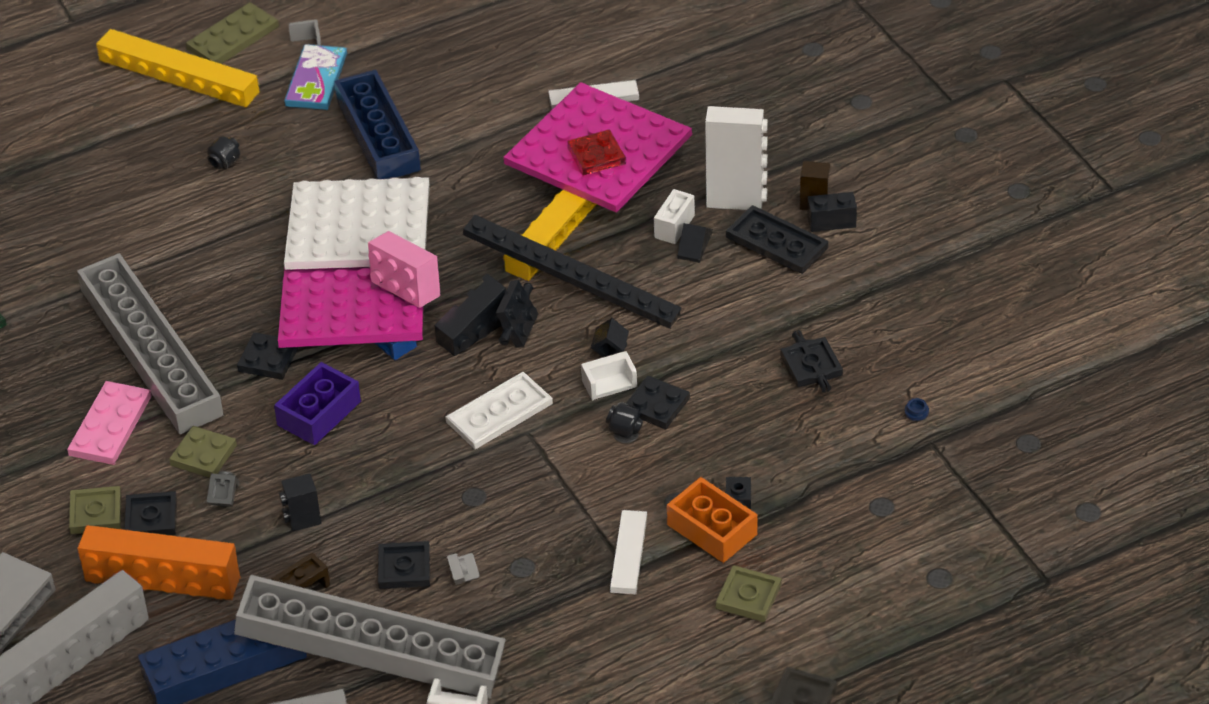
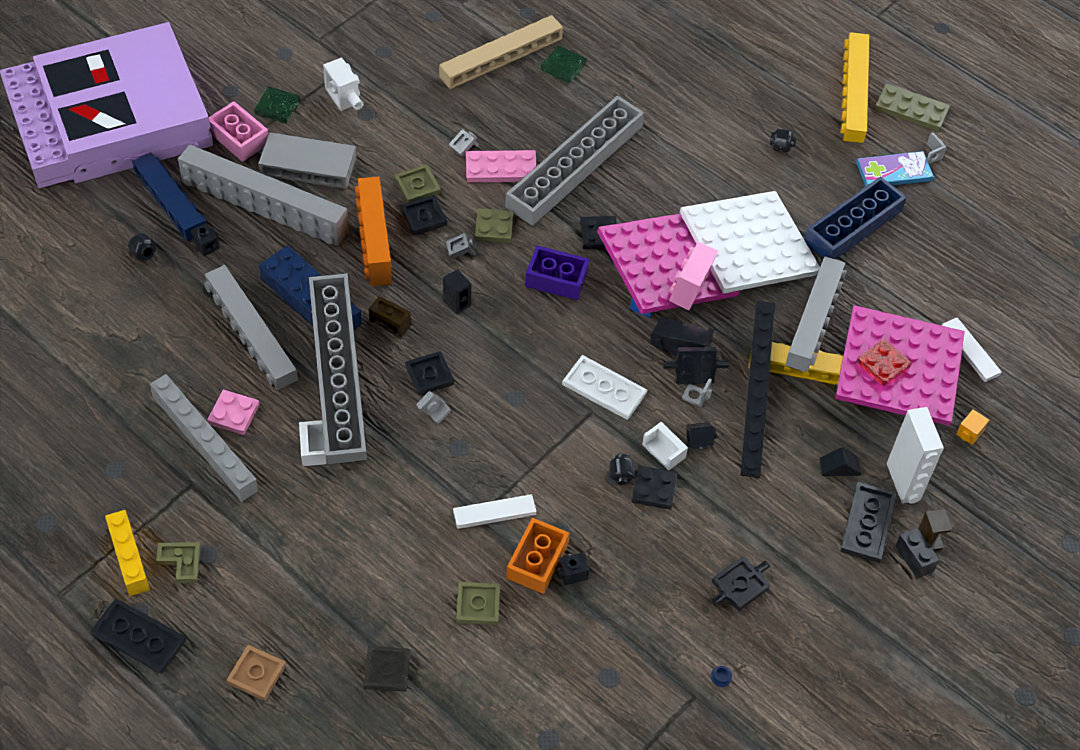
camera: 65 degrees right, 10 degrees up
(53, 446) = (463, 142): none -> light grey bracket
(497, 193) = (815, 314): none -> light grey brick
(554, 326) = (704, 394): none -> light grey bracket
(675, 211) = (857, 440): white panel -> none
(694, 118) = (972, 427): none -> light orange brick

